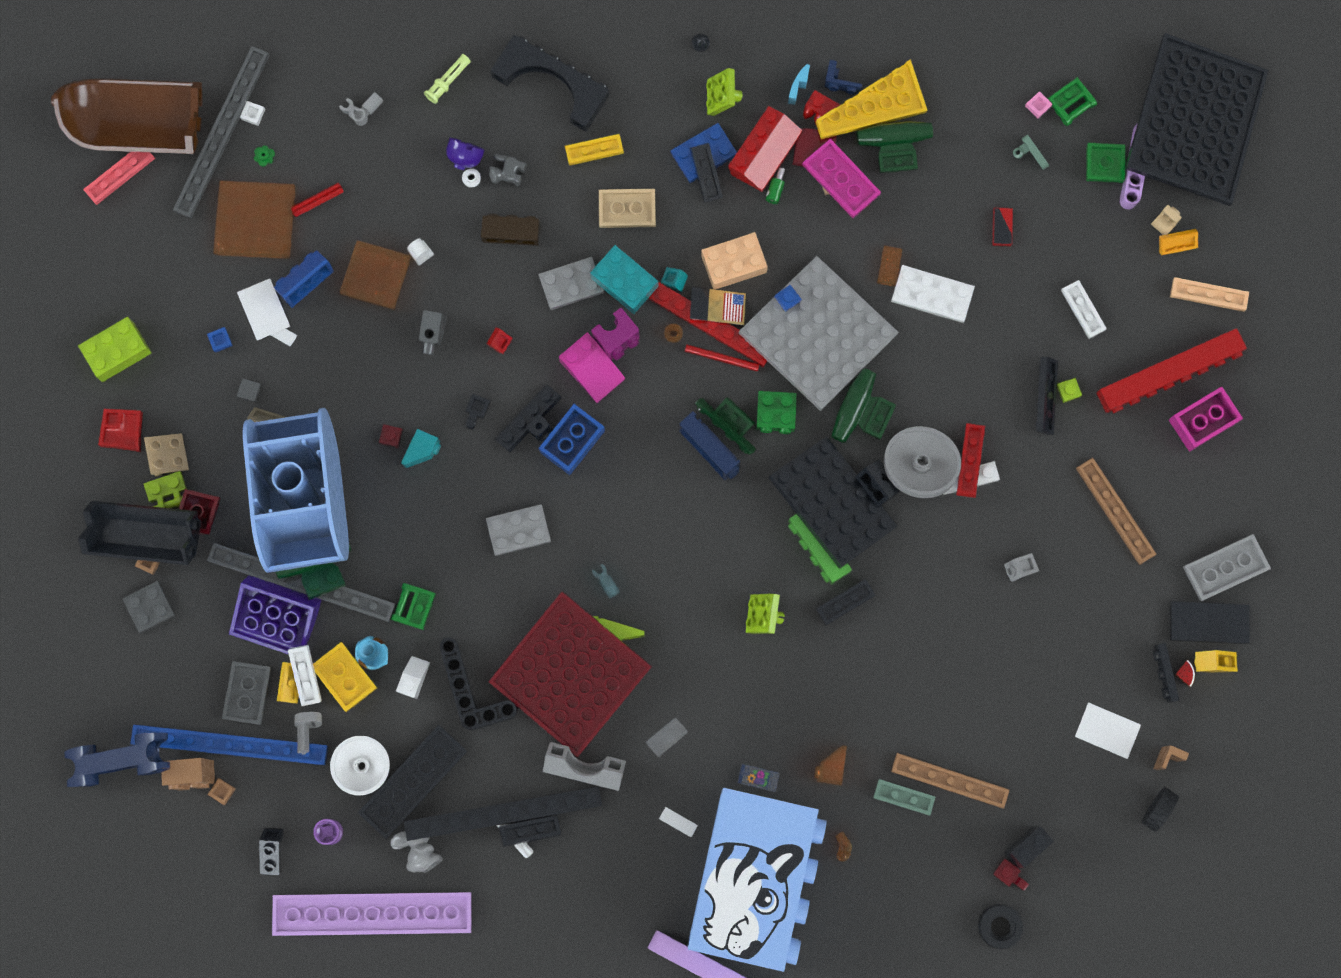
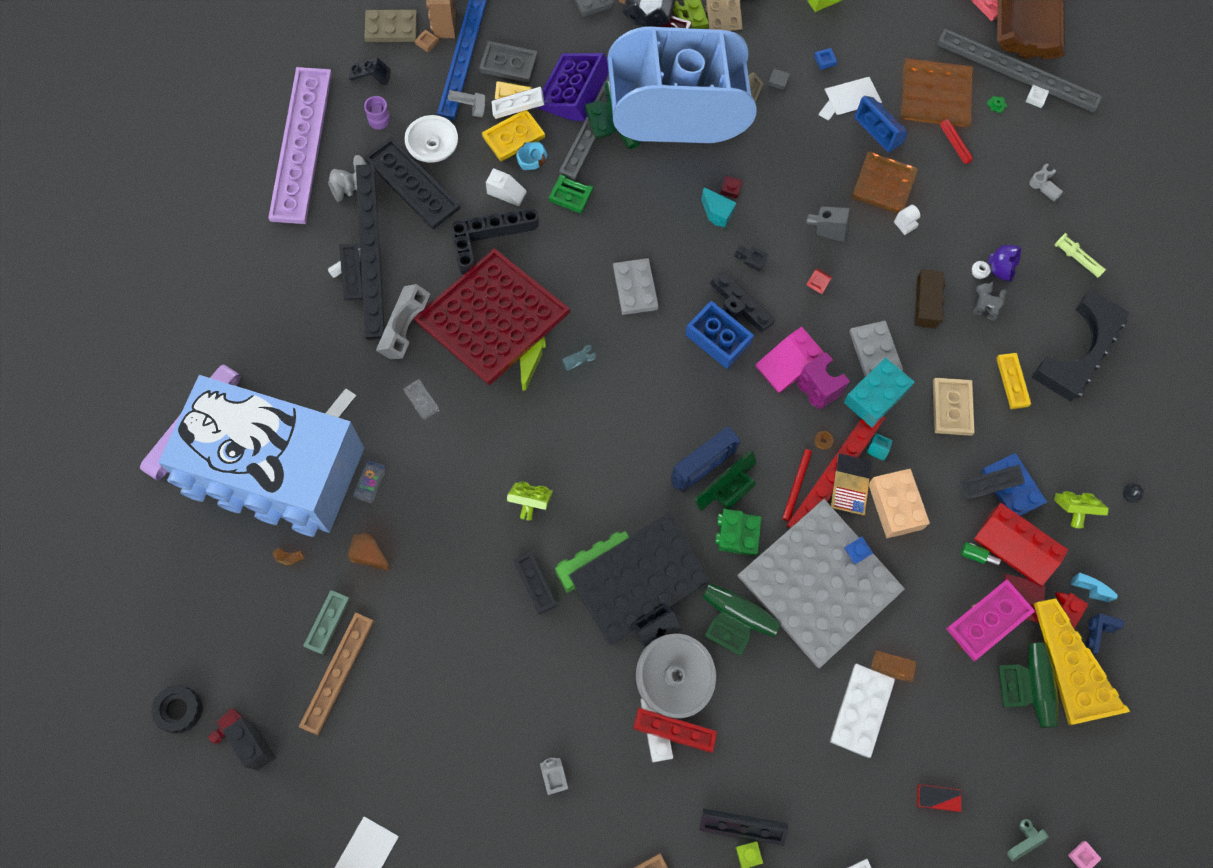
camera: 90 degrees right, 10 degrees down
(203, 836) = (390, 25): none -> dark tan plate

